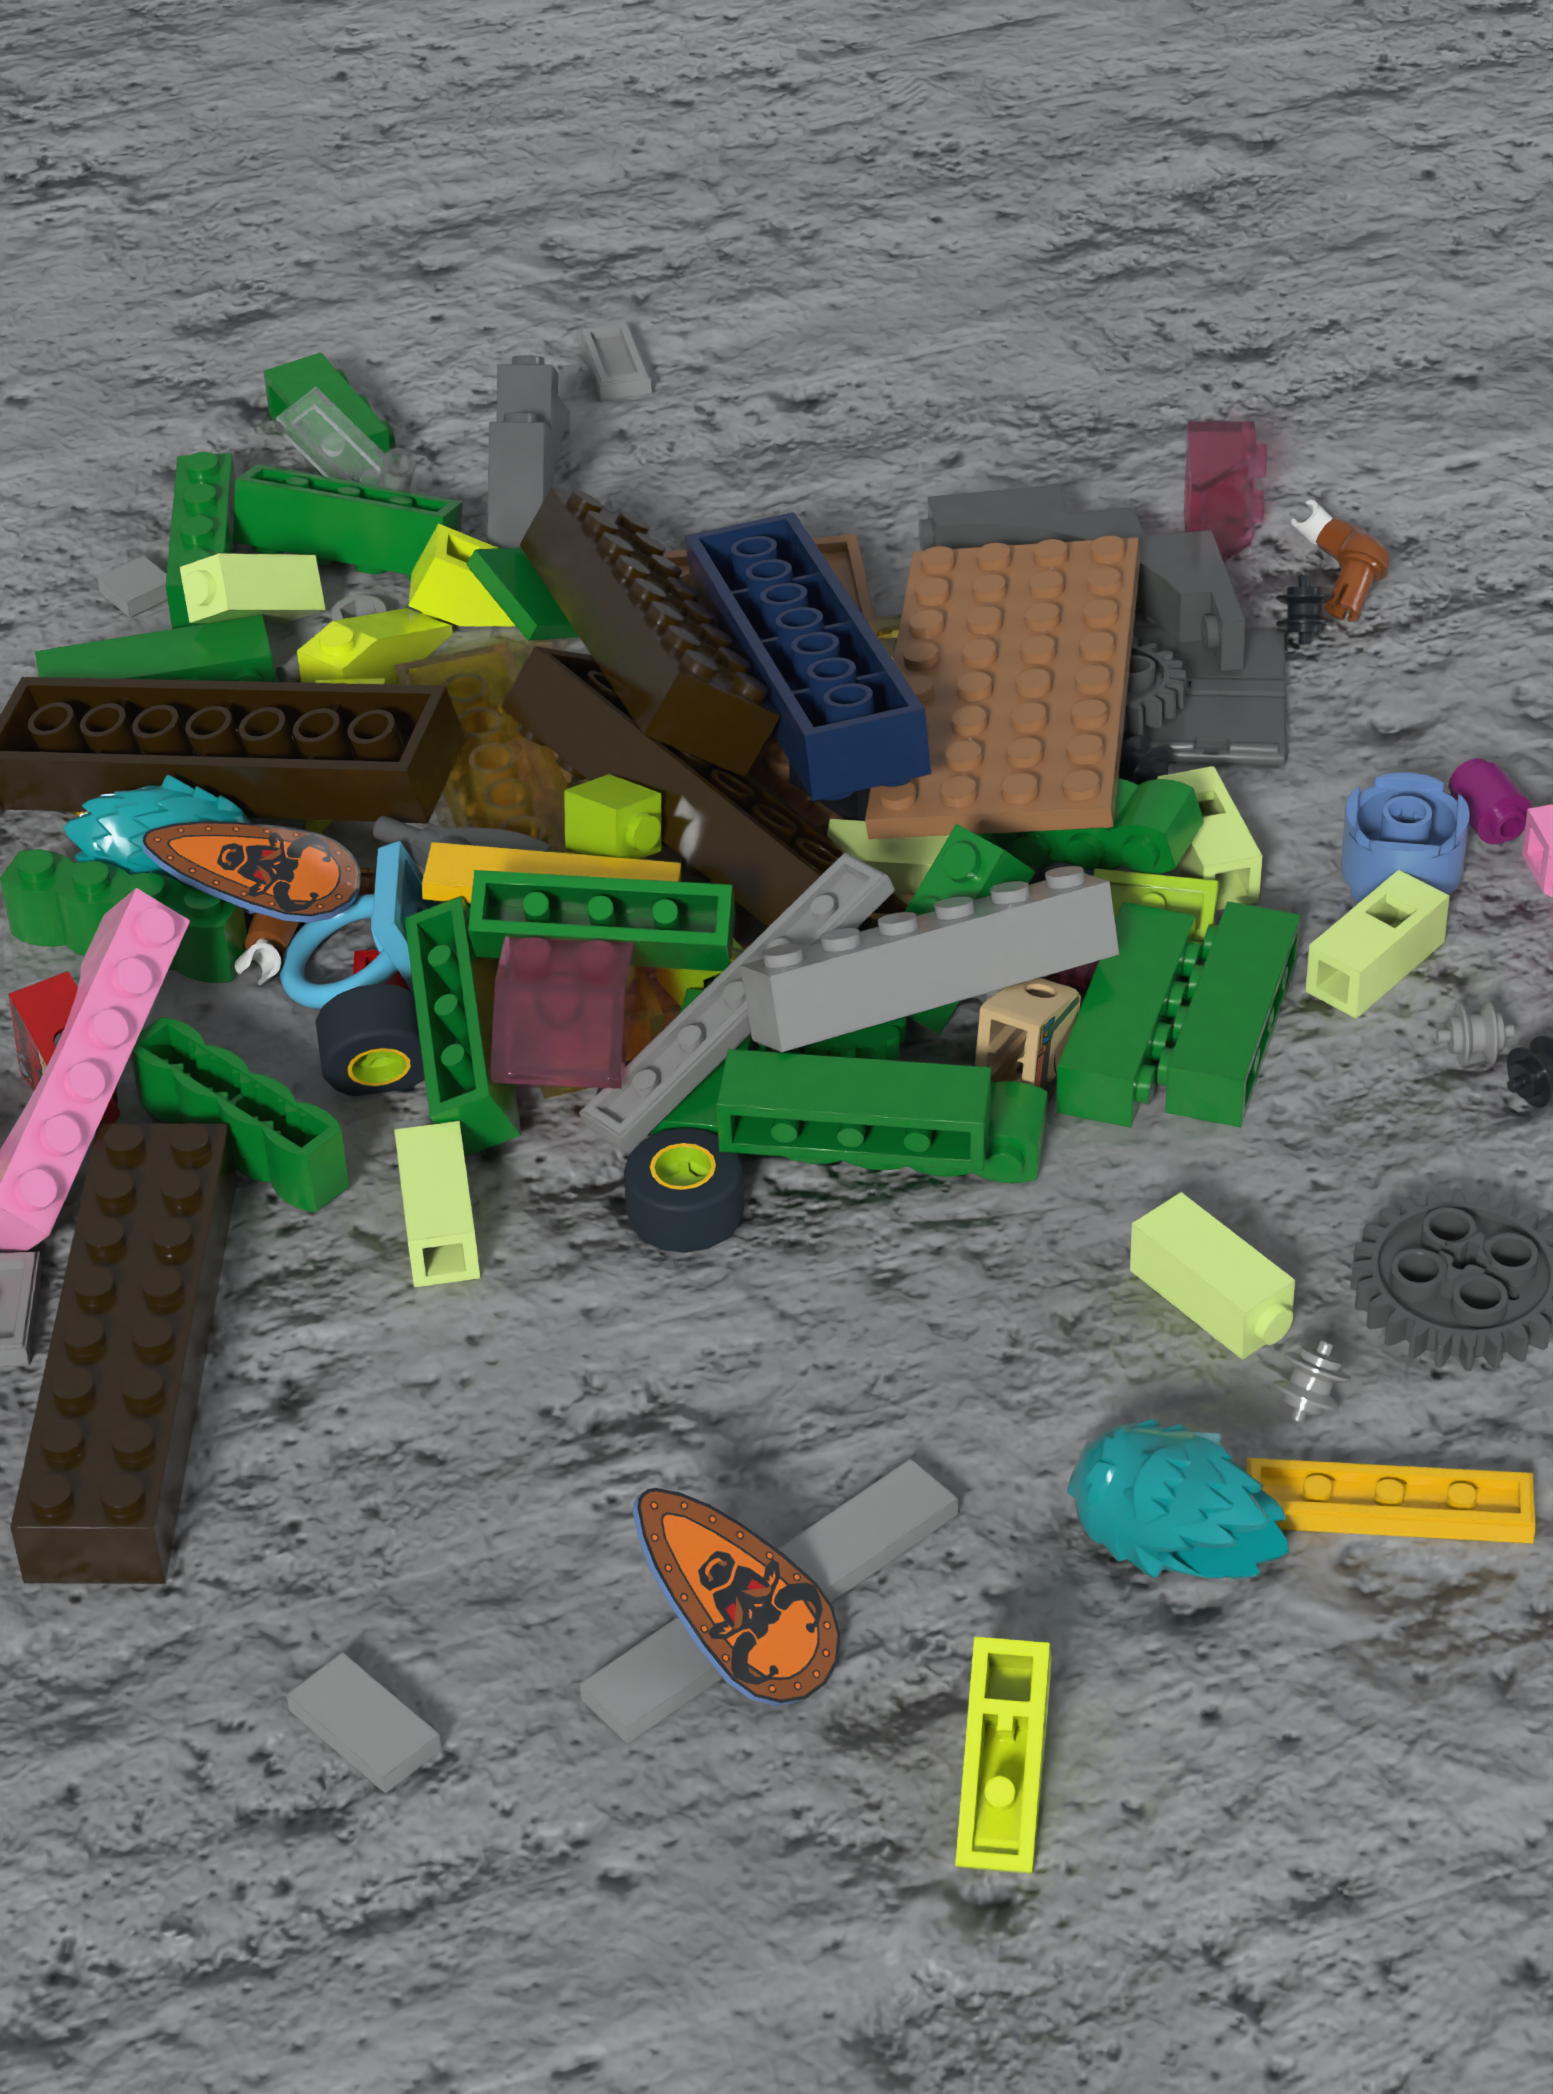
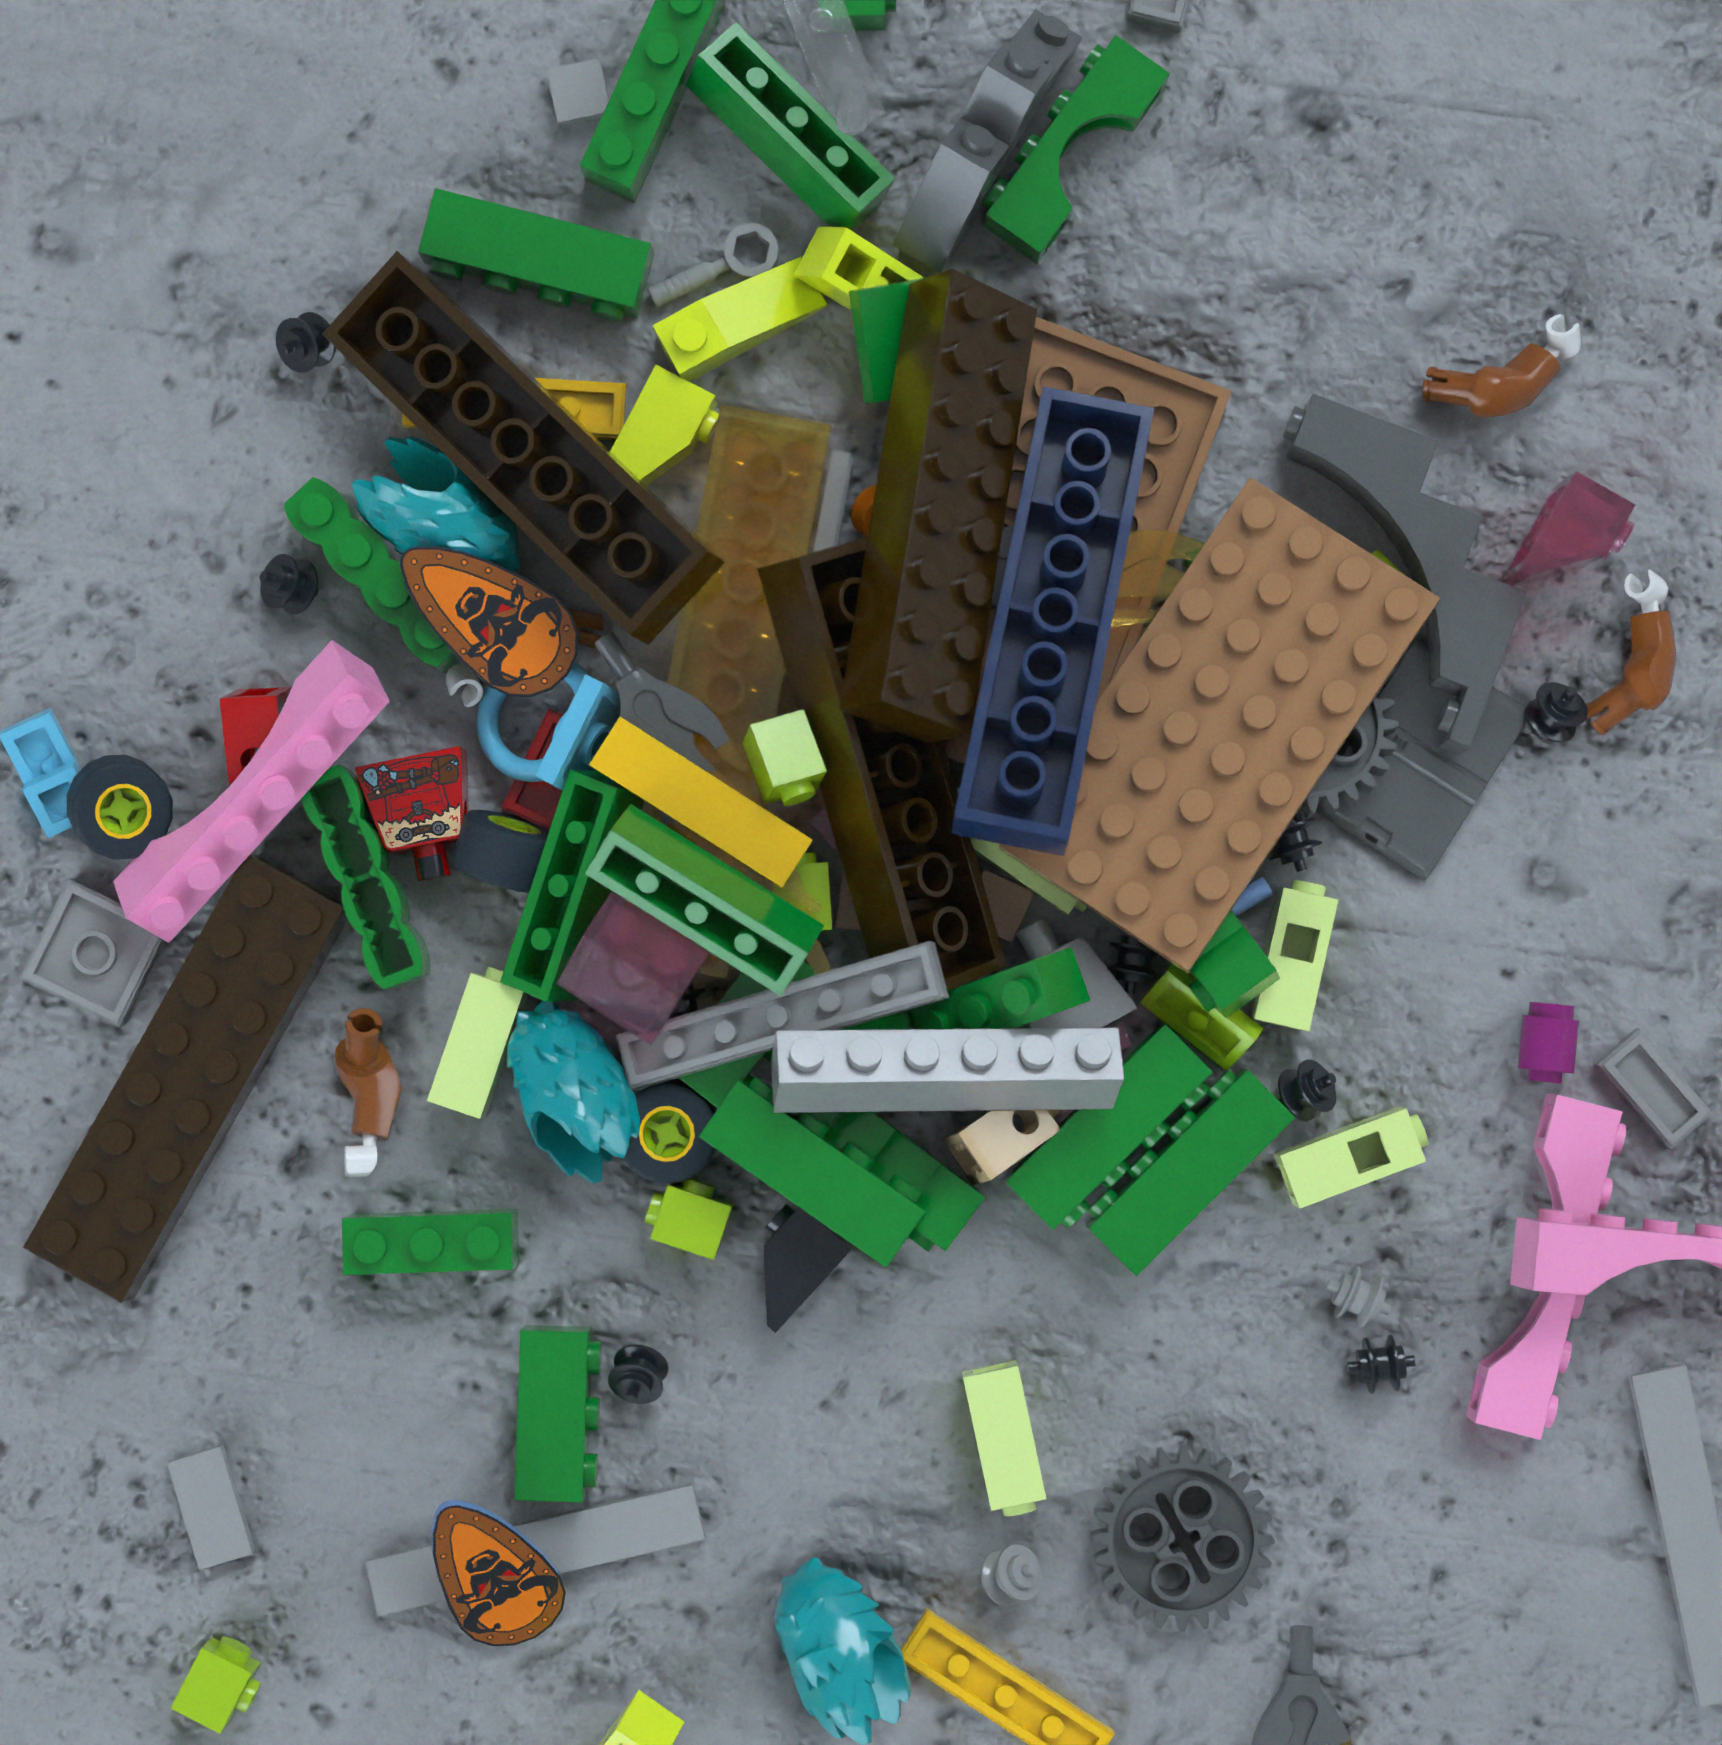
camera: 25 degrees right, 45 degrees up
(31, 956) = (289, 584): none -> black wheel
(251, 585) = (652, 211): yellowish green brick -> none
(272, 1039) = (419, 805): none -> torso
(331, 1279) = (372, 1084): none -> dark orange arm
(470, 1873) = (218, 1684): none -> lime brick
(482, 1368) = (430, 1241): none -> green brick
(553, 1174) = (571, 1090): none -> teal head
(616, 425) = (1114, 94): none -> green arch
(711, 1447) = (556, 1413): none -> green brick
(754, 1245) = (689, 1217): none -> lime brick
(785, 1386) = (638, 1374): none -> black wheel
(891, 1228) = (797, 1261): none -> black slope
(1084, 452) = (1506, 388): none -> dark orange arm
(1307, 904) = (1307, 1090): none -> black wheel
(1406, 827) = (1472, 1061): medium blue brick -> none

